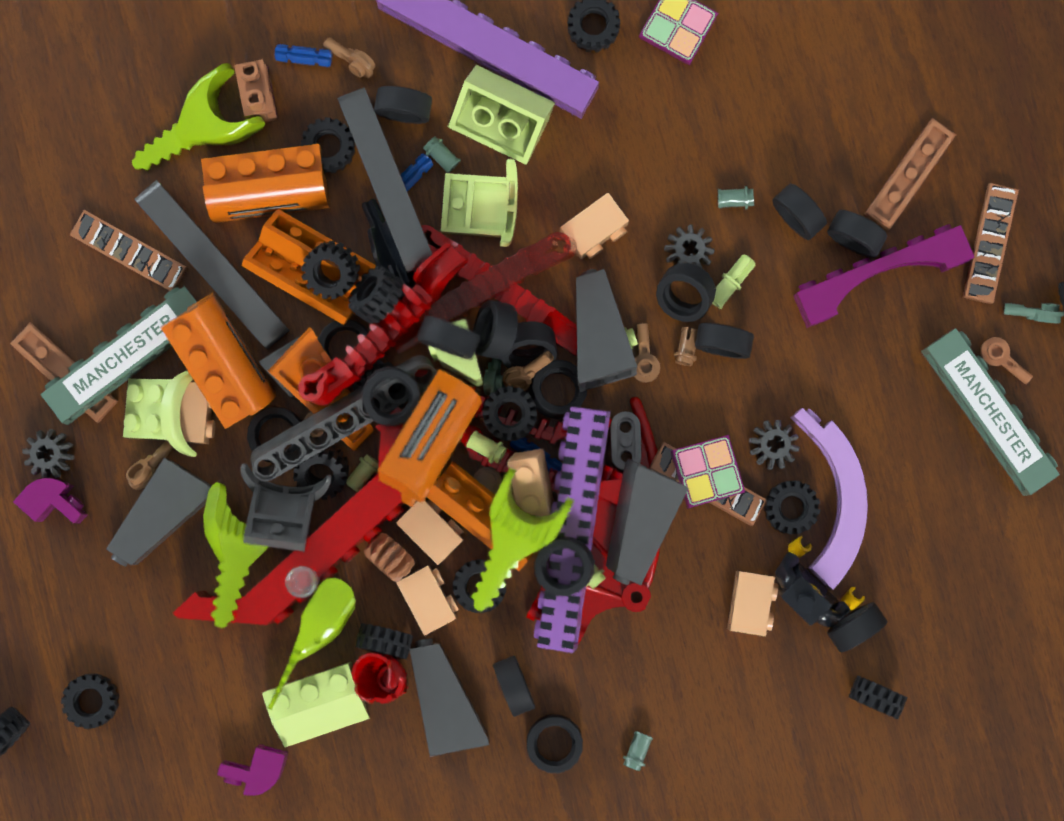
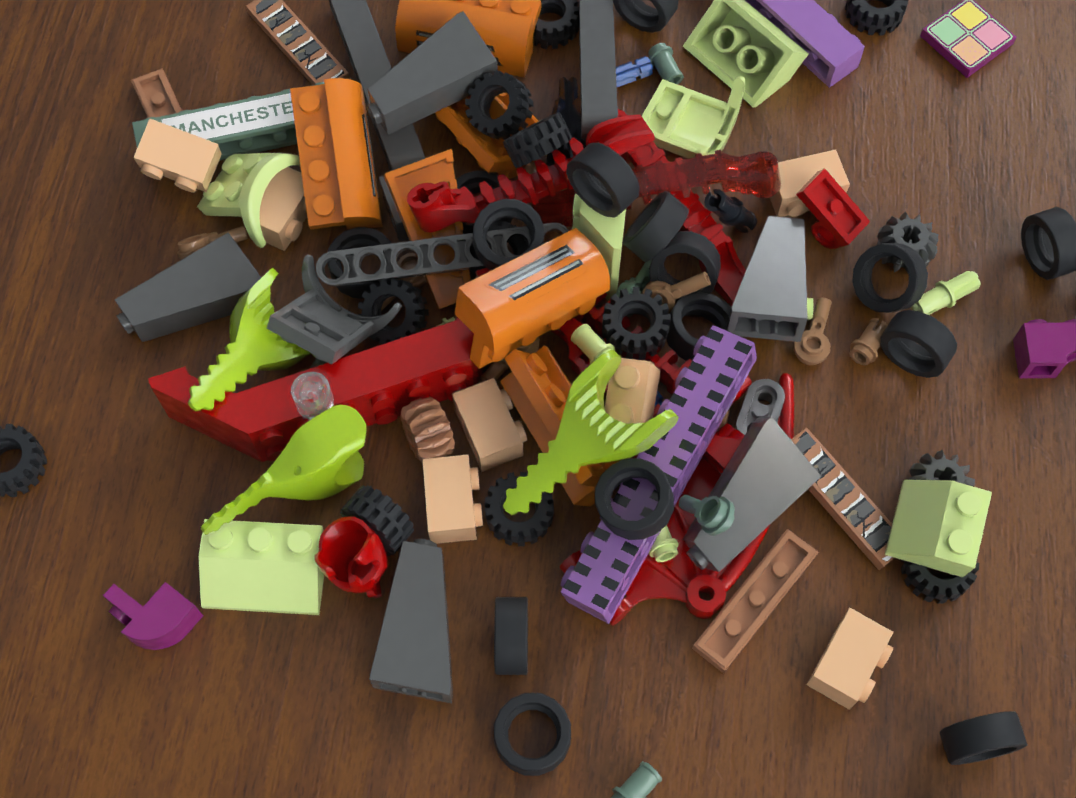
camera: 25 degrees right, 20 degrees down
(38, 449) = (109, 191): dark grey gear -> none
(46, 494) = (82, 230): magenta brick -> none
(95, 415) = (177, 156): none -> light nougat brick
(267, 264) = (431, 76): none -> dark grey slope
(545, 282) = (730, 211): none -> black pin
(623, 250) = (836, 213): none -> red plate
(623, 553) = (712, 513): none -> sand green plate
(672, 583) = (755, 601): none -> nougat tile
(708, 471) = (851, 479): tile -> none
(736, 198) = (978, 213): sand green pin -> none
(781, 488) = (939, 525): none -> yellowish green slope
(807, 594) = (930, 672): black torso -> none
(851, 499) = (1020, 576): lavender arch -> none

